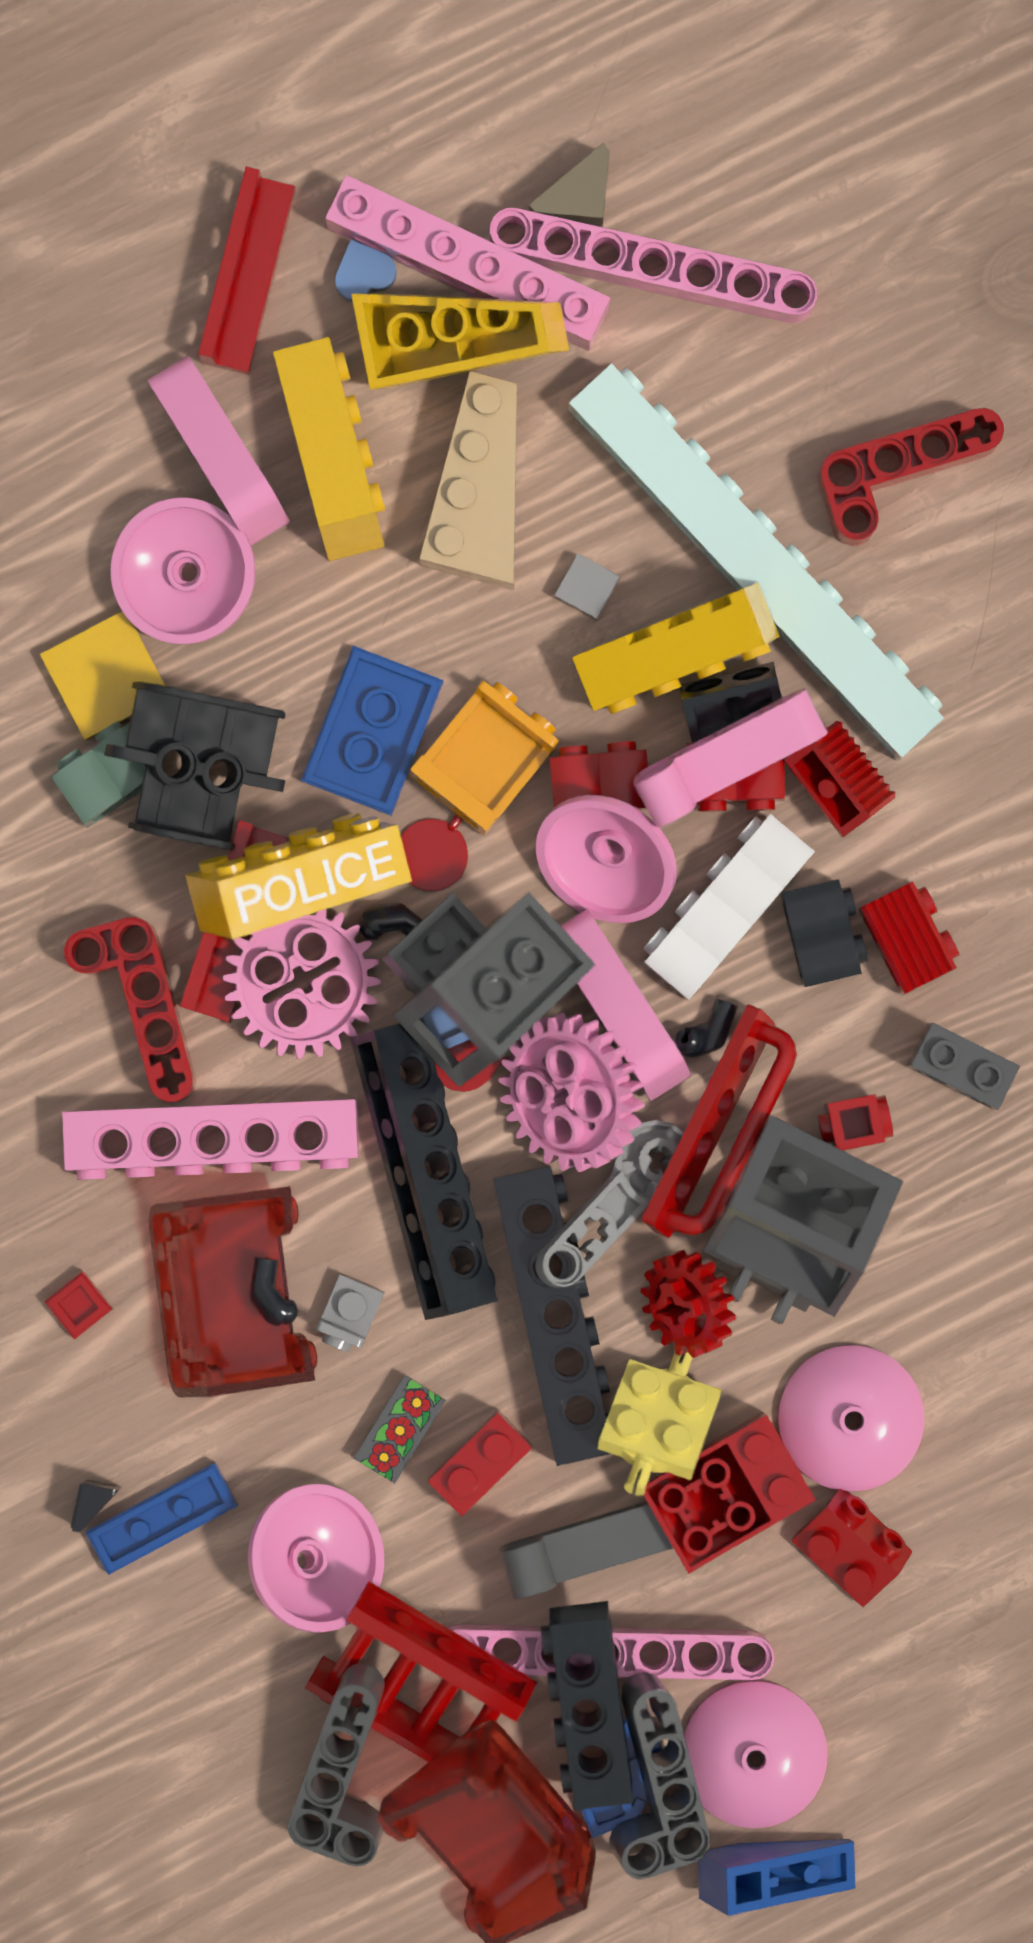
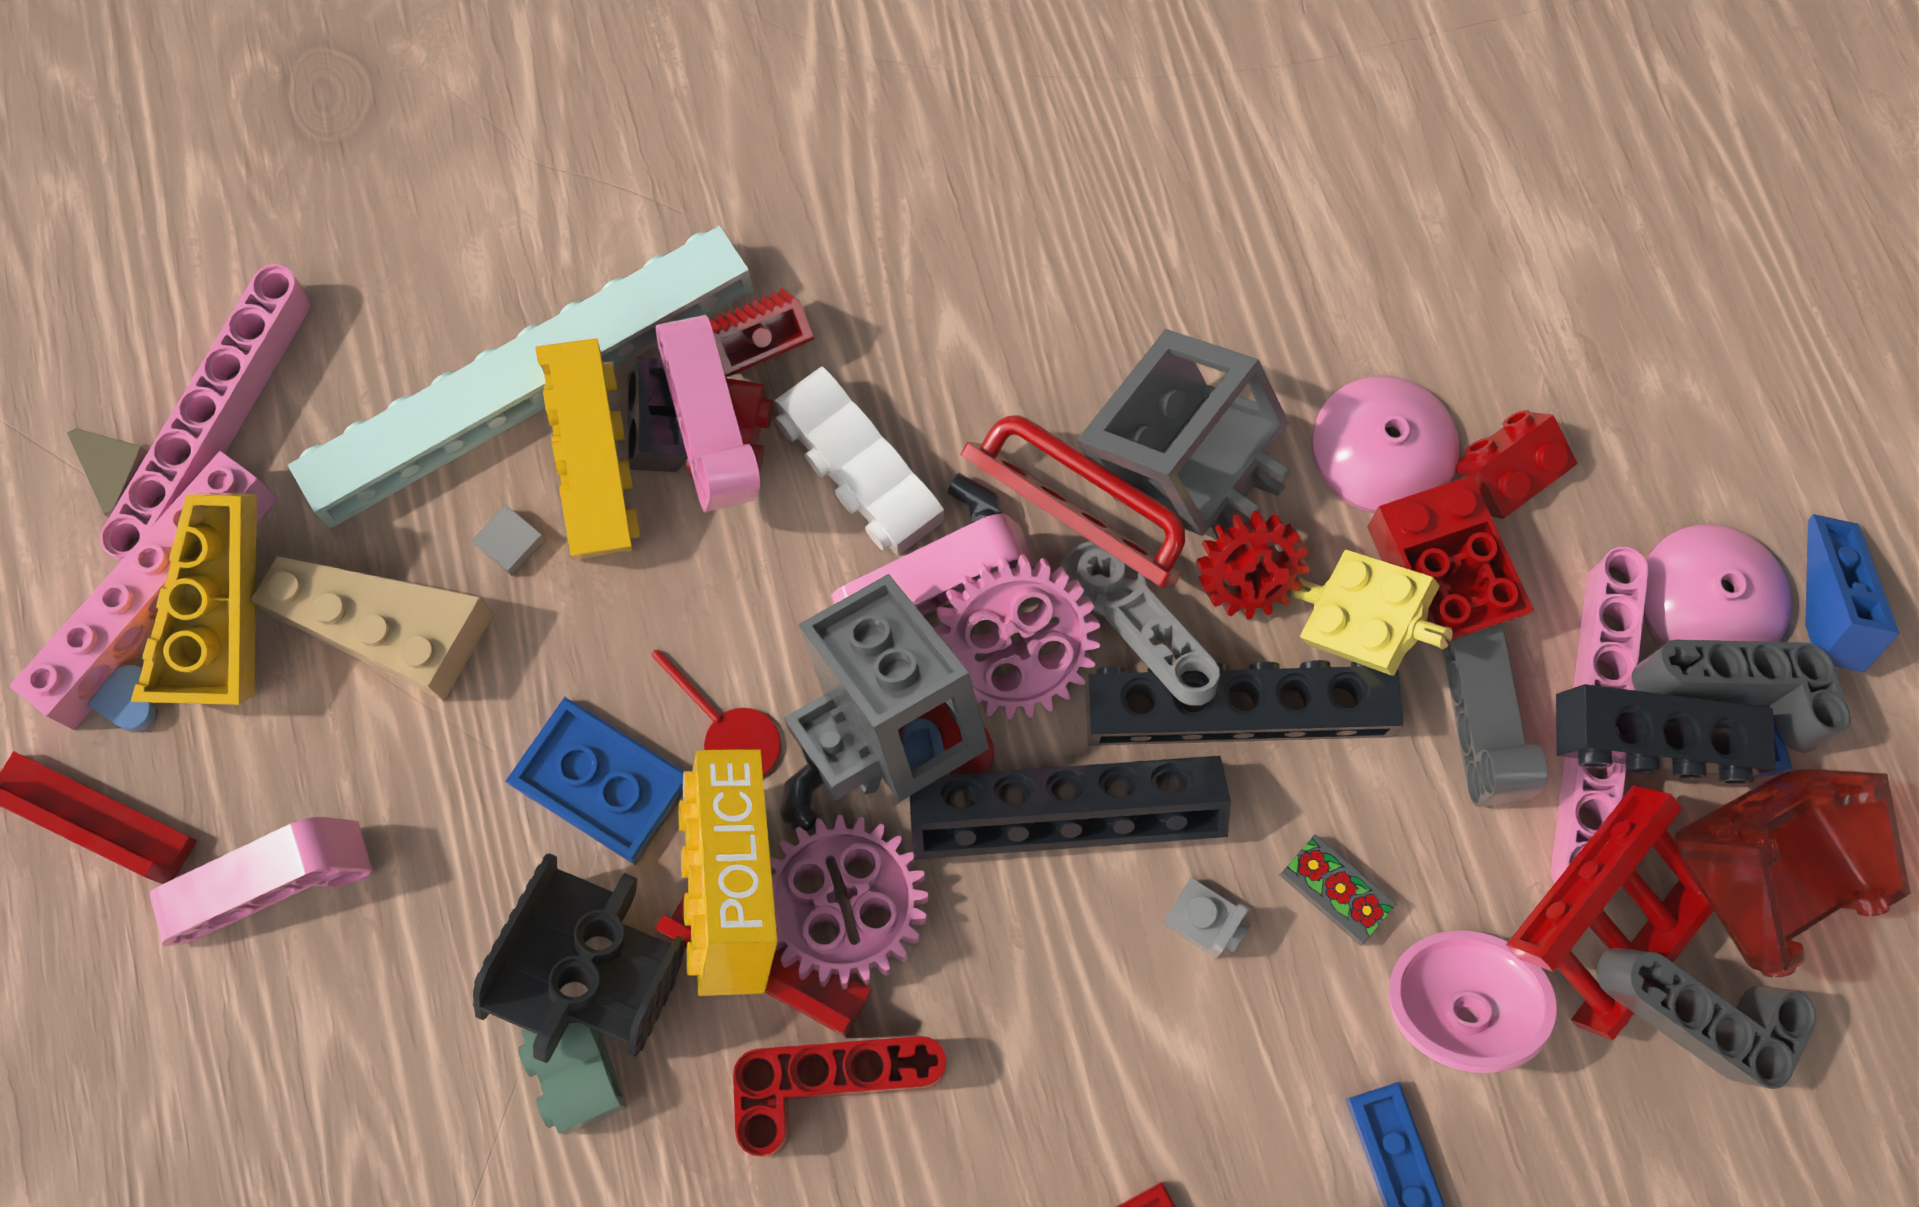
camera: 85 degrees left, 15 degrees down
(85, 1131) = (998, 891): bright pink brick -> none
(98, 673) = (463, 1059): yellow tile -> none
(150, 566) = (336, 947): bright pink dish -> none
(203, 1285) = (1168, 1048): clear red windscreen -> none
(266, 1297) = (1175, 1004): black arm -> none
(329, 447) = (292, 760): yellow wedge -> none
(480, 1463) = (1387, 807): red brick -> none
(485, 756) = (652, 667): light orange panel -> none
(599, 774) = (704, 559): red brick -> none
(606, 858) = (807, 565): bright pink dish -> none
(822, 932) = (904, 379): black brick -> none
(856, 1122) = (1095, 374): red brick -> none
(909, 937) = (925, 303): red brick -> none
(912, 465) = (470, 219): red beam -> none
(963, 1066) = (1059, 274): dark grey brick -> none

